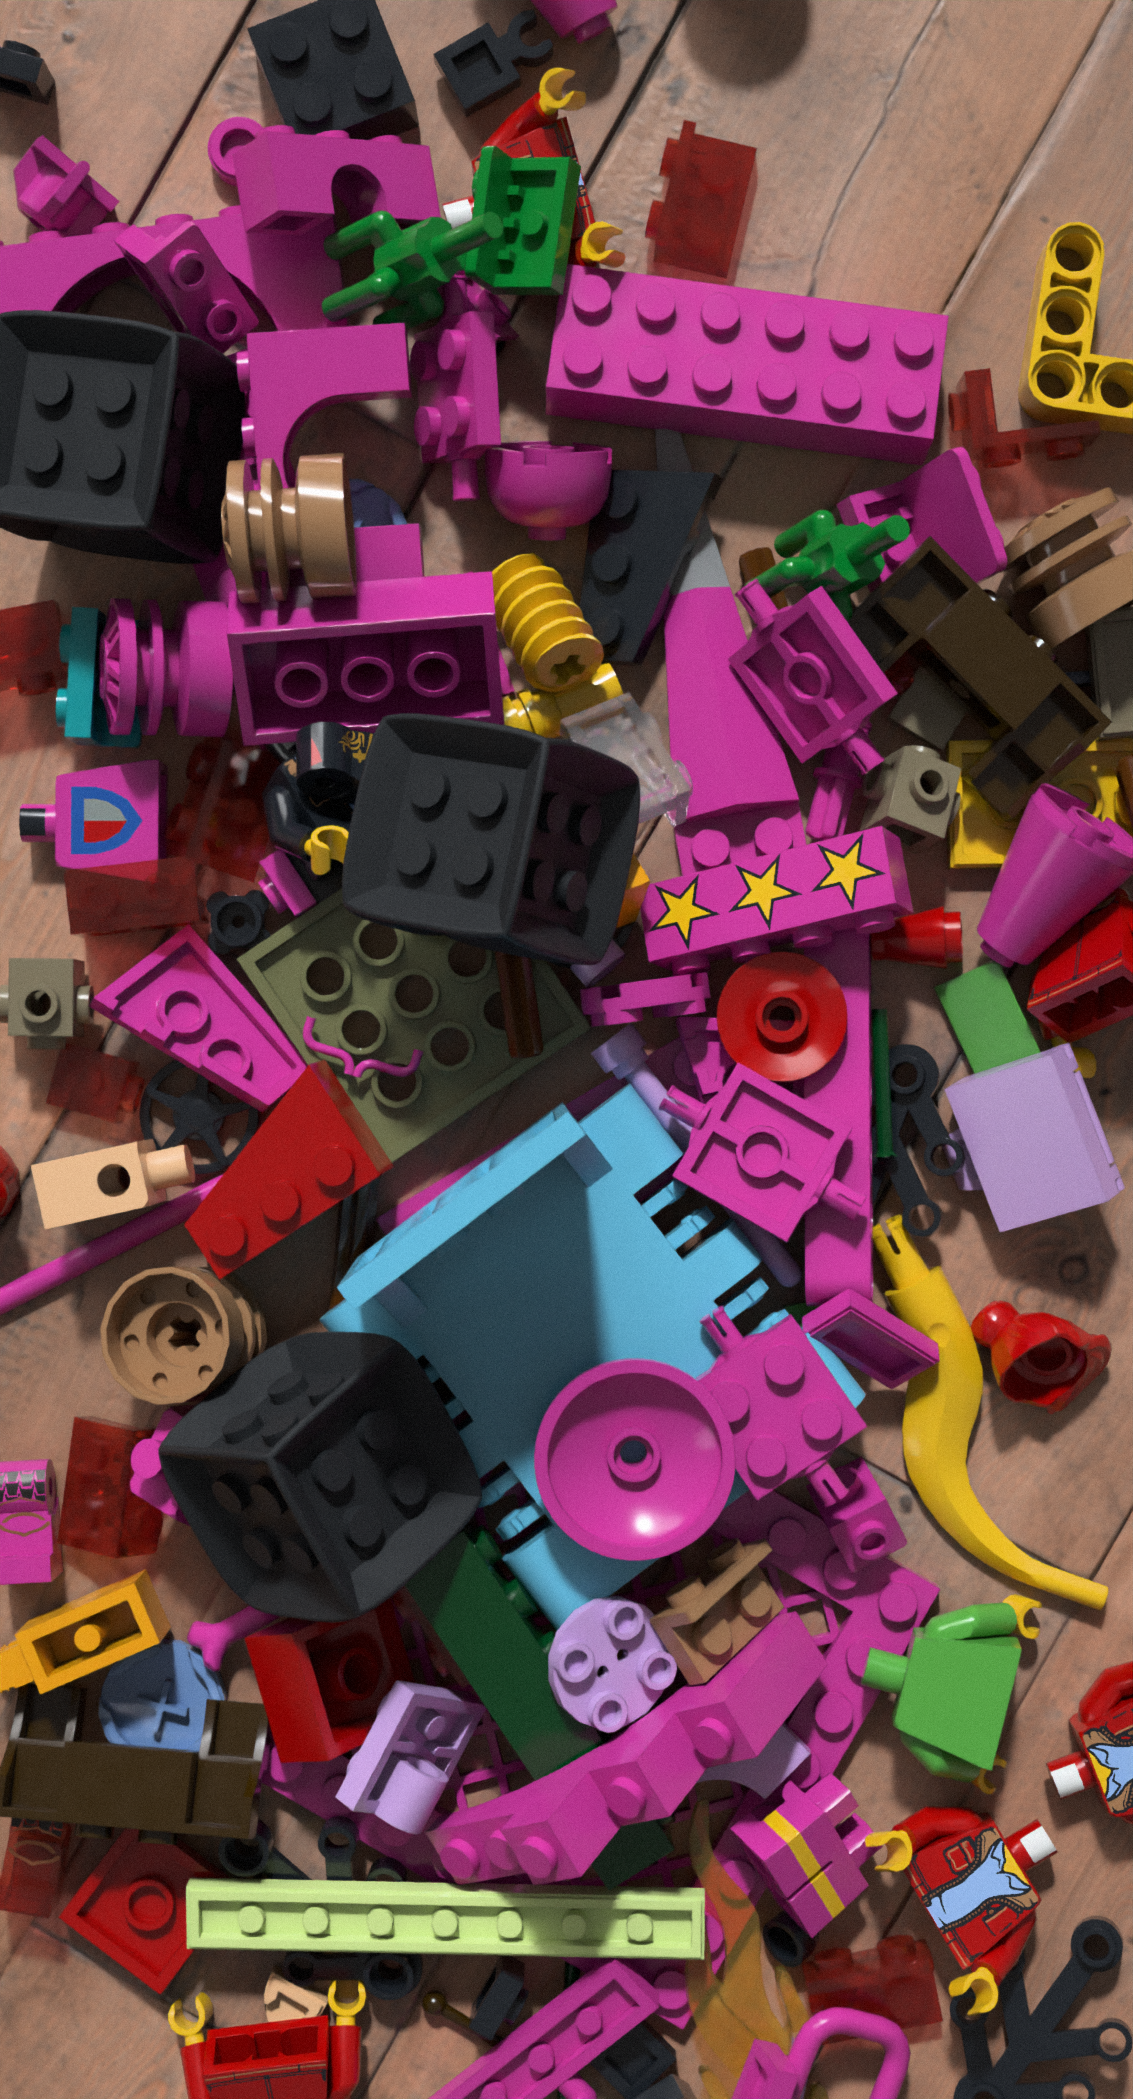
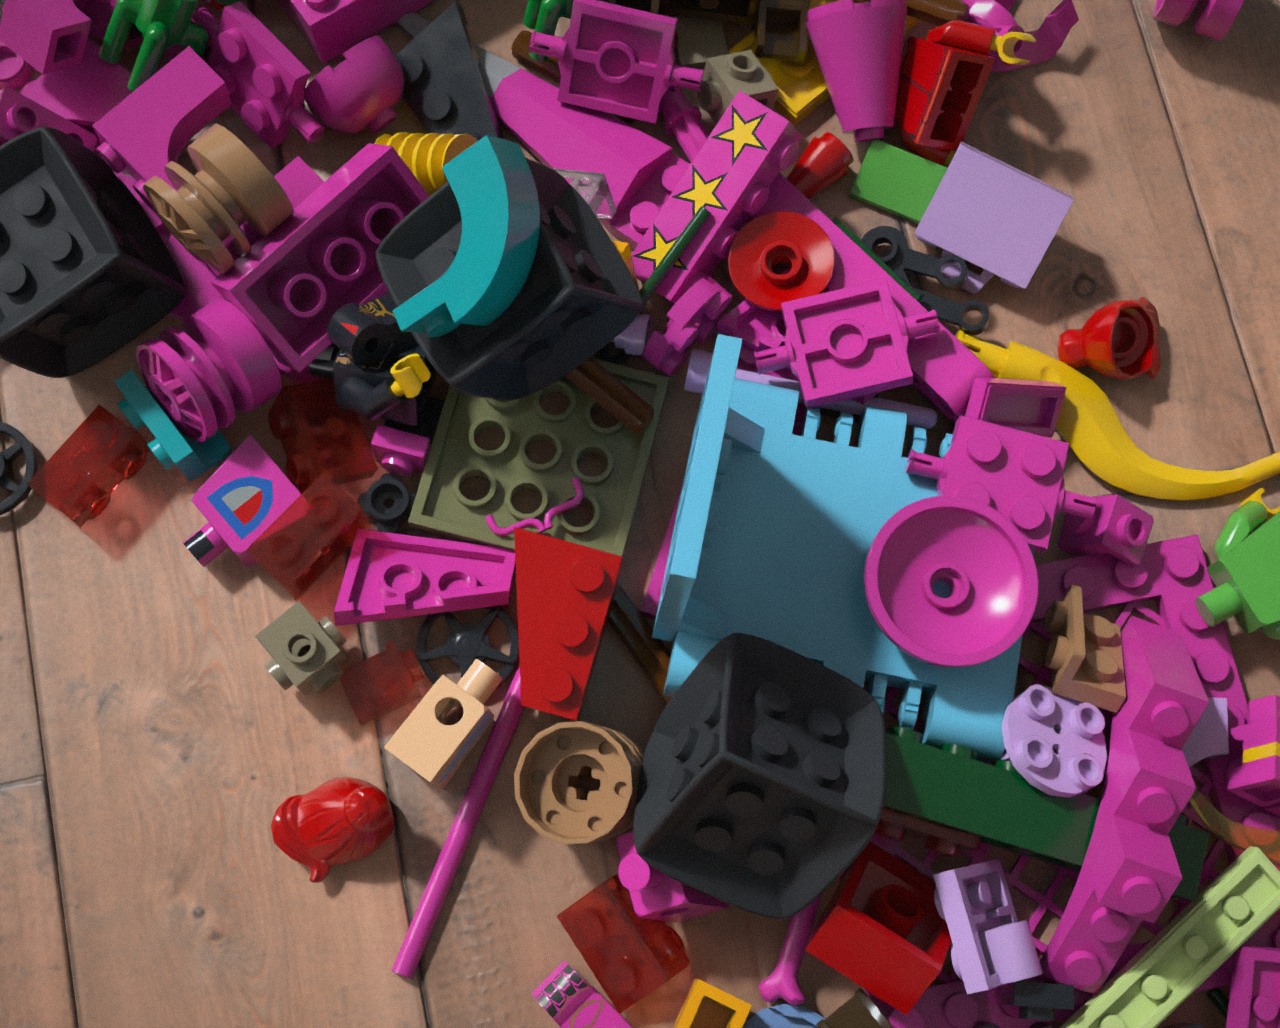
camera: 40 degrees left, 15 degrees down
(405, 1850) = (1037, 999): none -> black plate
(477, 830) = (495, 246): none -> teal arch
(681, 925) = (673, 254): none -> dark green piece

